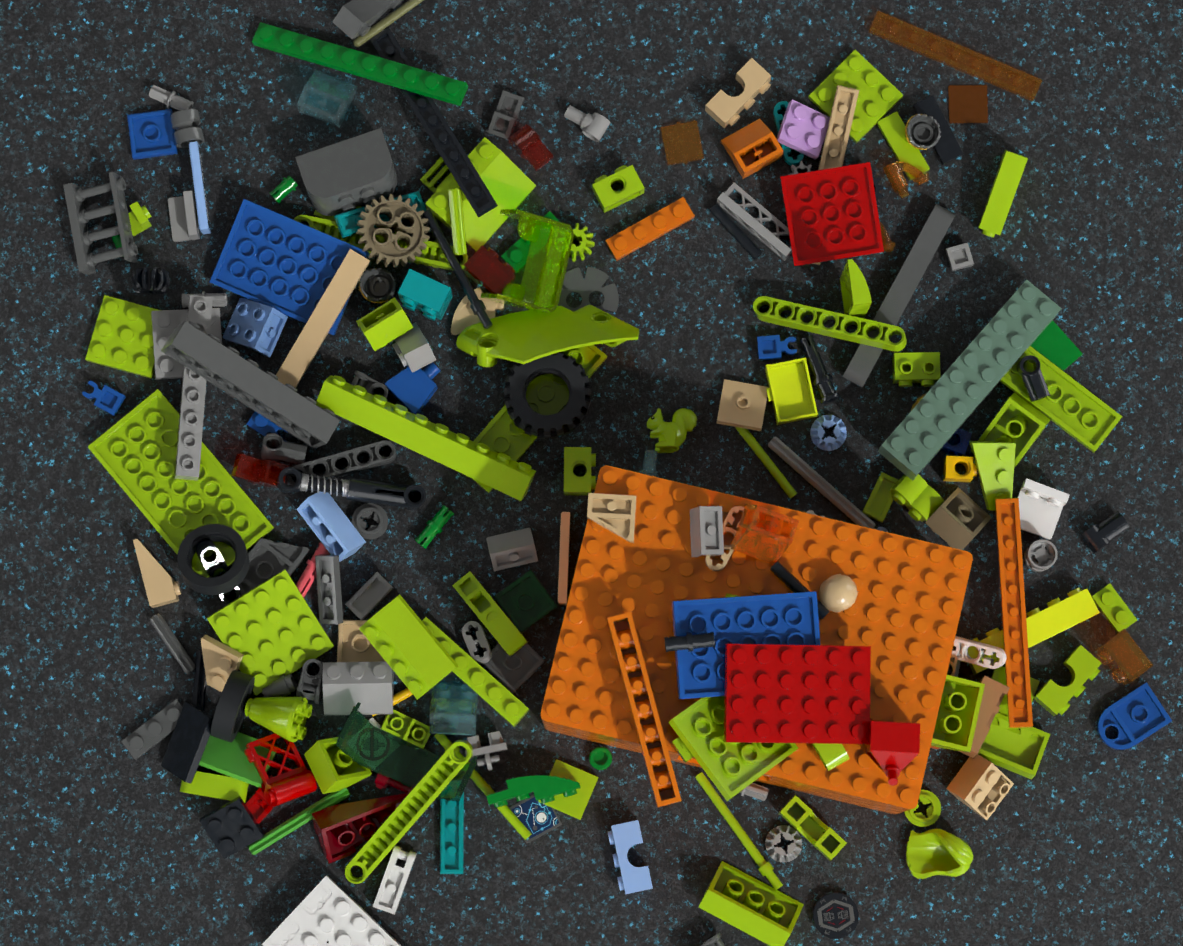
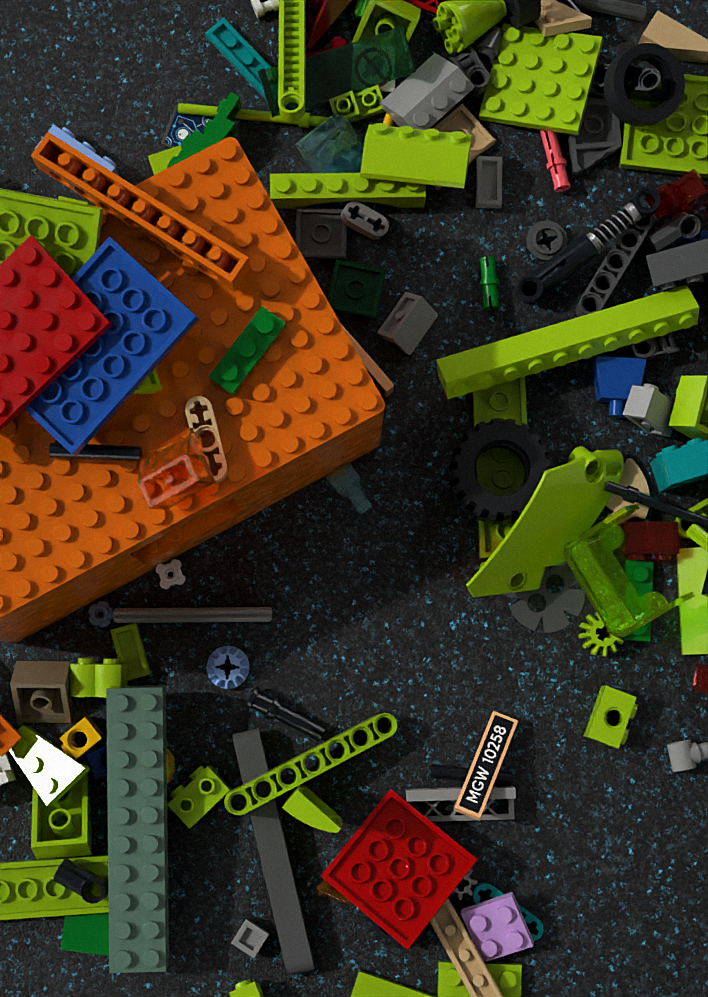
camera: 135 degrees right, 0 degrees up
(329, 589) = (526, 152): dark grey plate -> none
(331, 525) = (574, 204): light blue brick -> none
(490, 613) = (375, 247): lime slope -> none
(496, 745) = (273, 139): light grey hips -> none
(578, 457) = (409, 421): lime brick -> none
(613, 513) = (333, 368): tan wing -> none
(650, 228) = (548, 707): orange plate -> none
(655, 570) = (247, 351): none -> green plate
(671, 434) = (361, 541): lime animal -> none
(682, 143) = (593, 813): clear orange piece -> none
(689, 641) = (145, 290): black pin -> none
(706, 531) = (229, 425): light grey panel -> none
(722, 227) = (486, 765): none -> tile
(725, 108) = (582, 882): tan arch -> none
(742, 405) = (324, 622): tan plate -> none
(752, 148) = (527, 866): orange slope -> none
(768, 463) = (261, 593): lime bar -> none
(771, 347) = (345, 697): blue plate -> none
(790, 391) = (293, 673): neon yellow container -> none
(838, 593) = (56, 481): tan hair -> none
(897, 180) = (370, 959): clear orange plant -> none

